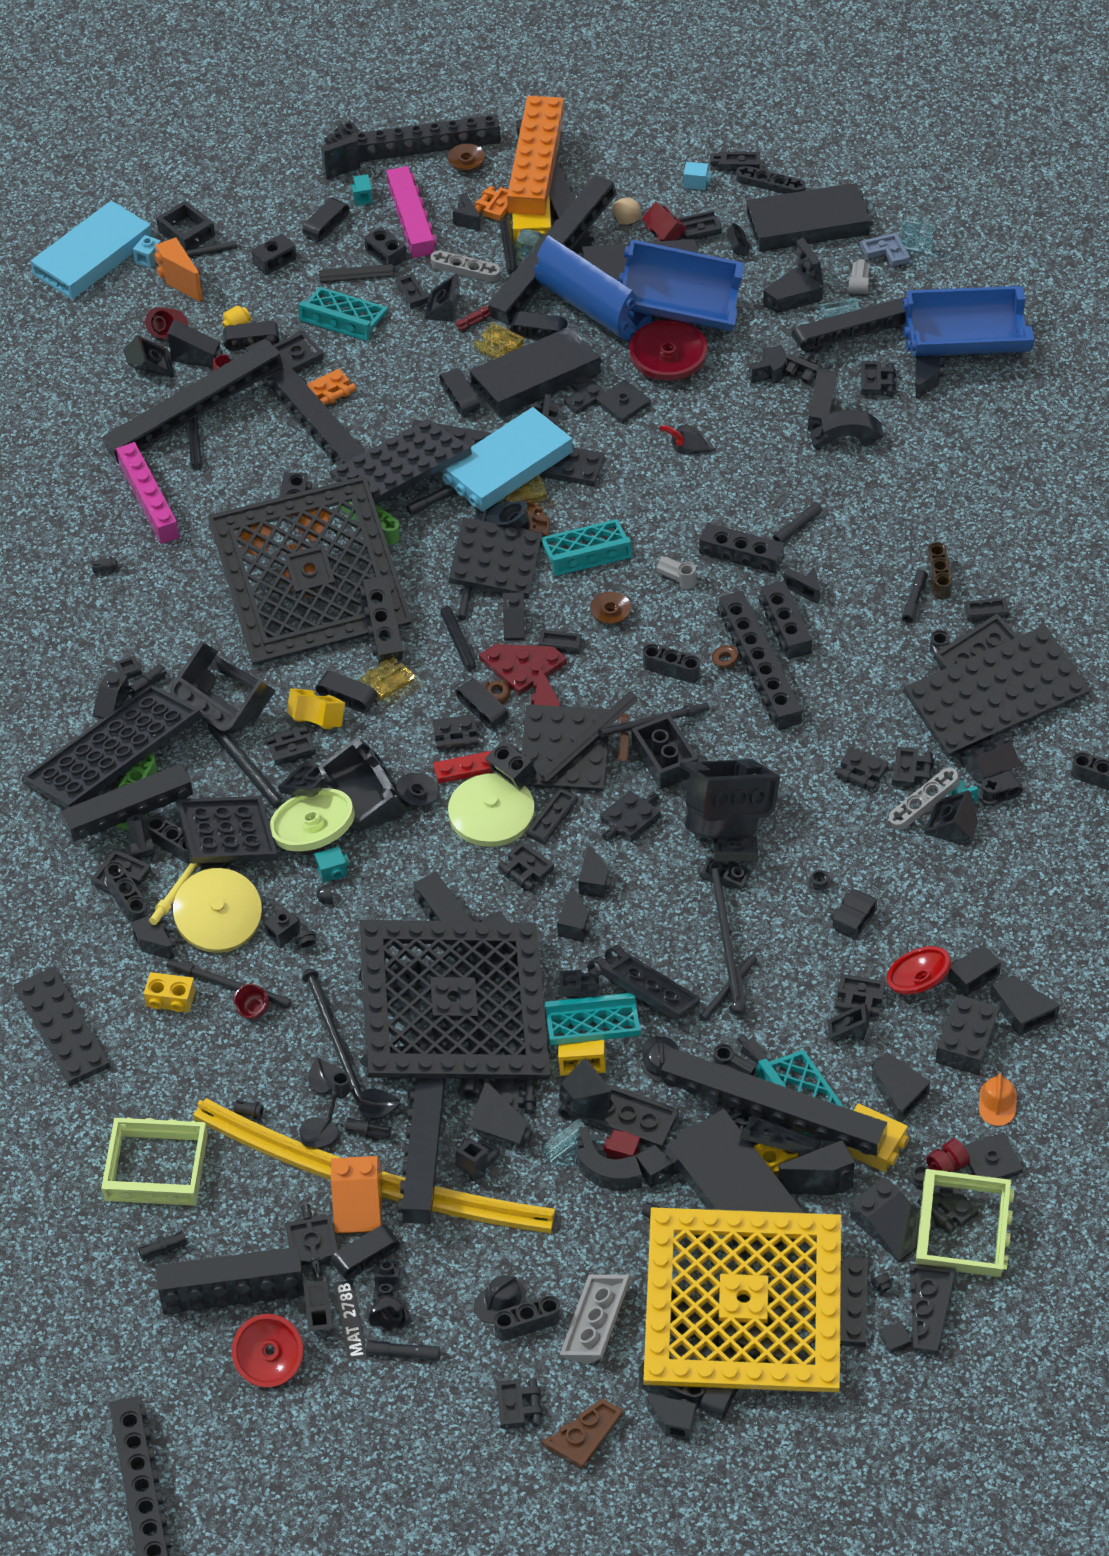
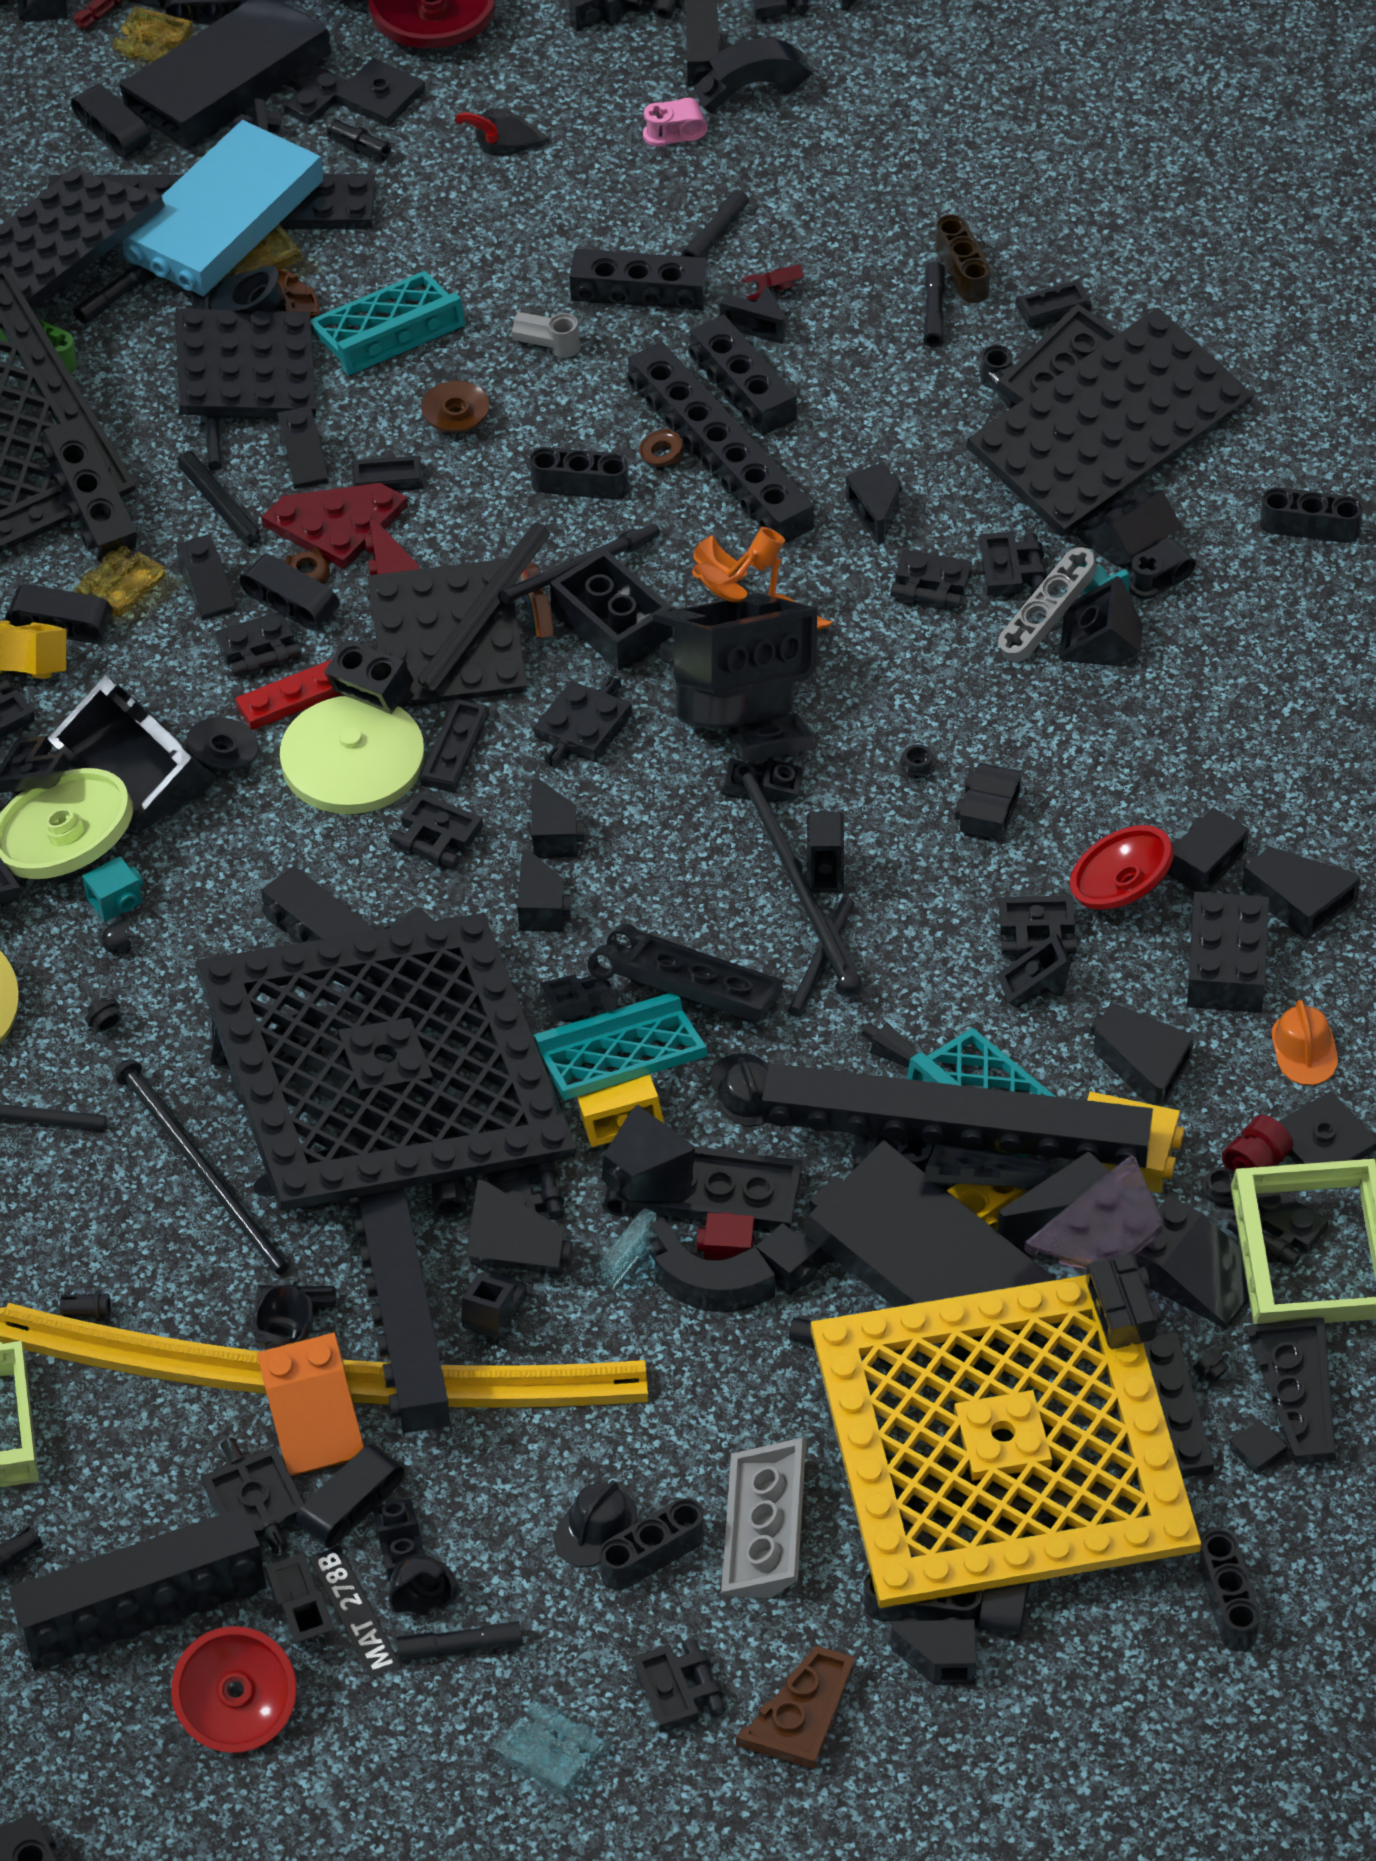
camera: 15 degrees left, 0 degrees up
(251, 1001) = (42, 1131): dark red hair -> none
(282, 927) = (59, 1004): black brick -> none
(328, 1077) = (202, 1228): black plant -> none
(355, 1140) = (282, 1317): none -> black hair
(431, 1427) = (544, 1756): none -> clear light blue plate
(435, 685) = (205, 577): none -> black slope
(601, 429) = (358, 140): none -> black pin
(733, 1060) = (854, 1055): black piece -> none
(738, 734) = (722, 572): none -> orange plant
(746, 925) = (825, 851): none -> black brick
(793, 452) = (676, 121): none -> bright pink piece
(826, 563) = (781, 278): none -> dark red plate
(832, 1234) = (1122, 1300): none -> black brick
(836, 1186) = (1104, 1222): none -> clear purple wing
(842, 712) = (874, 498): none -> black slope
(851, 1428) = (1229, 1606): none -> black beam

